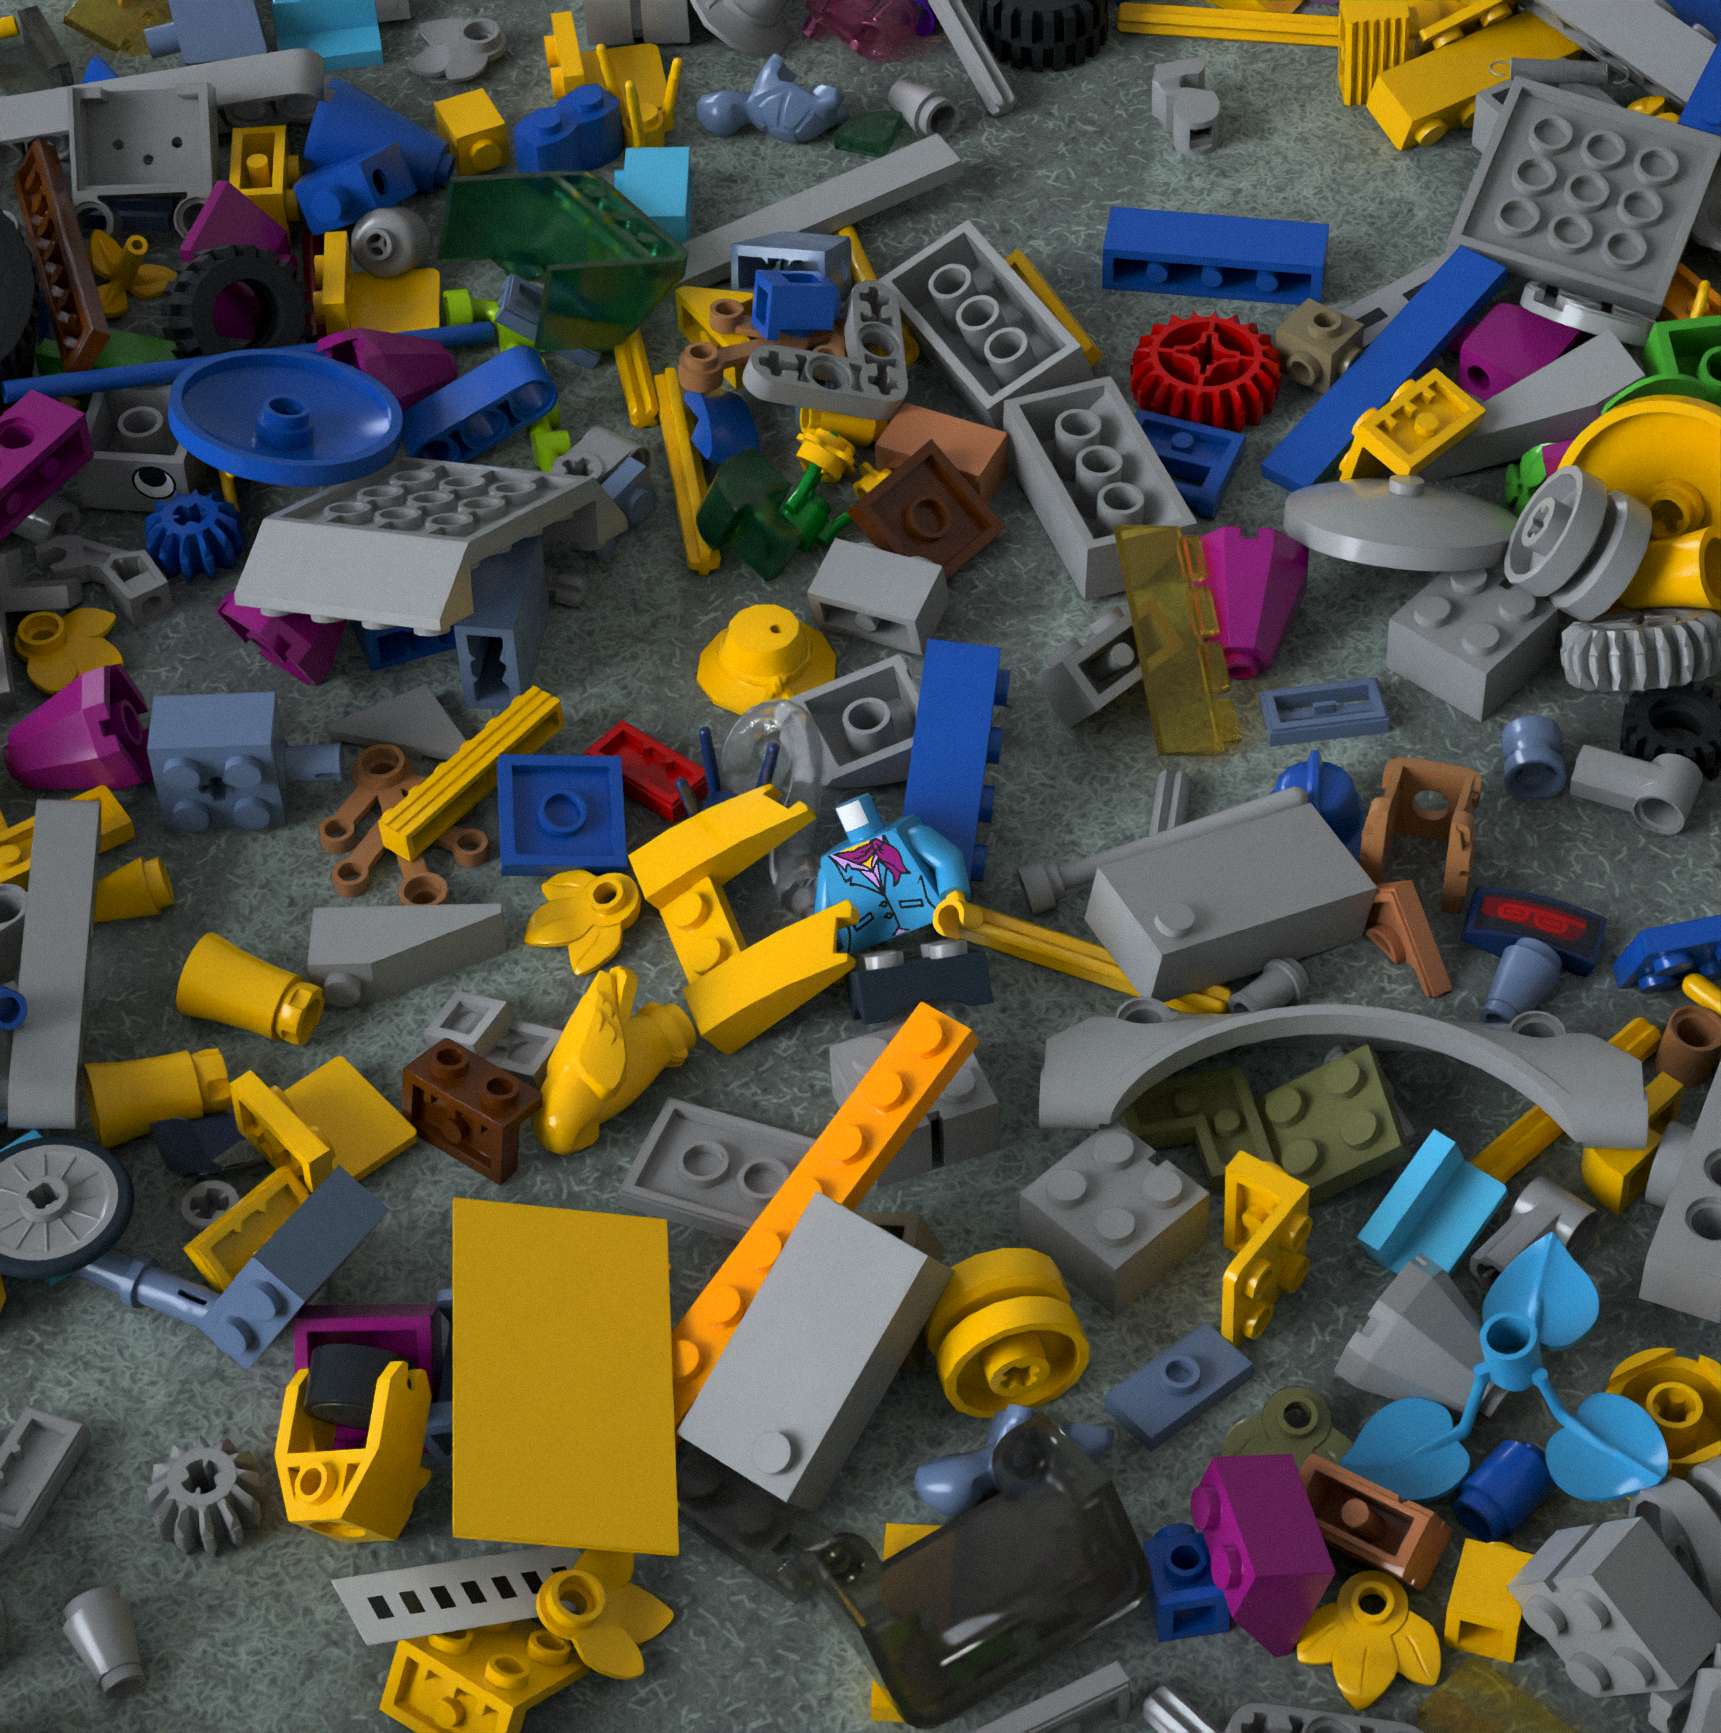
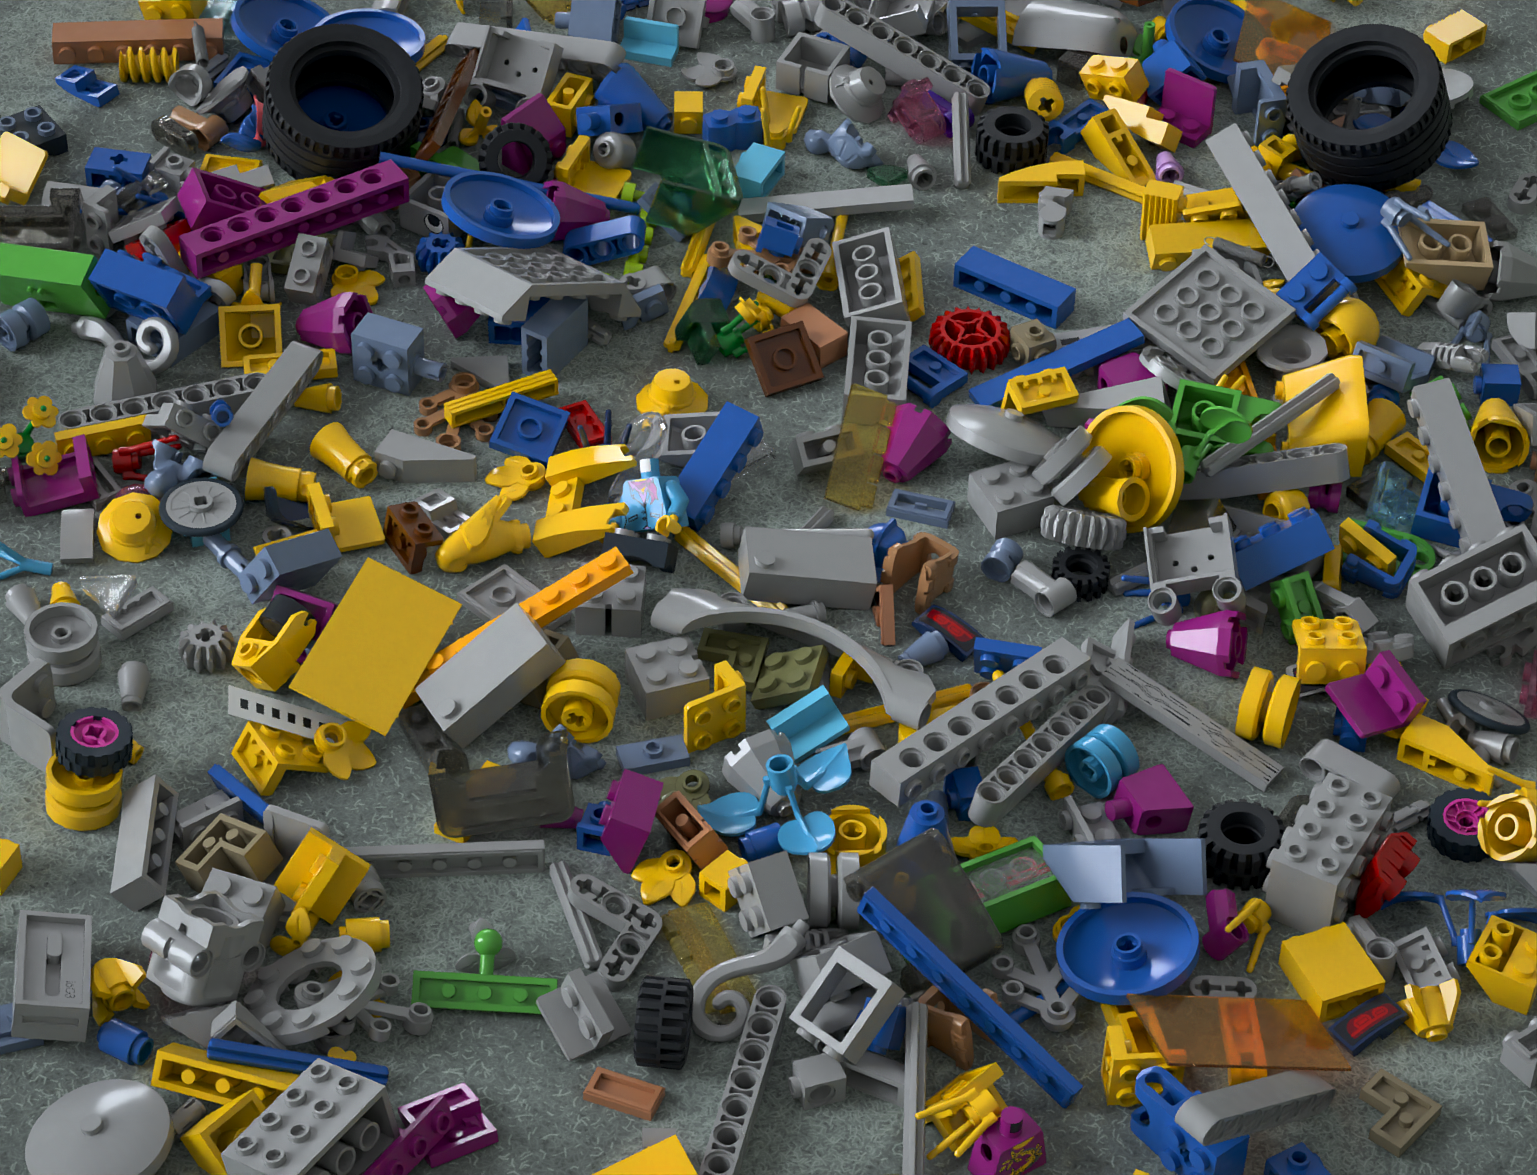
camera: 20 degrees right, 5 degrees down
(879, 596) = (739, 383): light grey brick -> none
(1125, 64) = (1026, 183): none -> yellow slope
(1421, 1081) = (845, 675): none -> yellow bracket

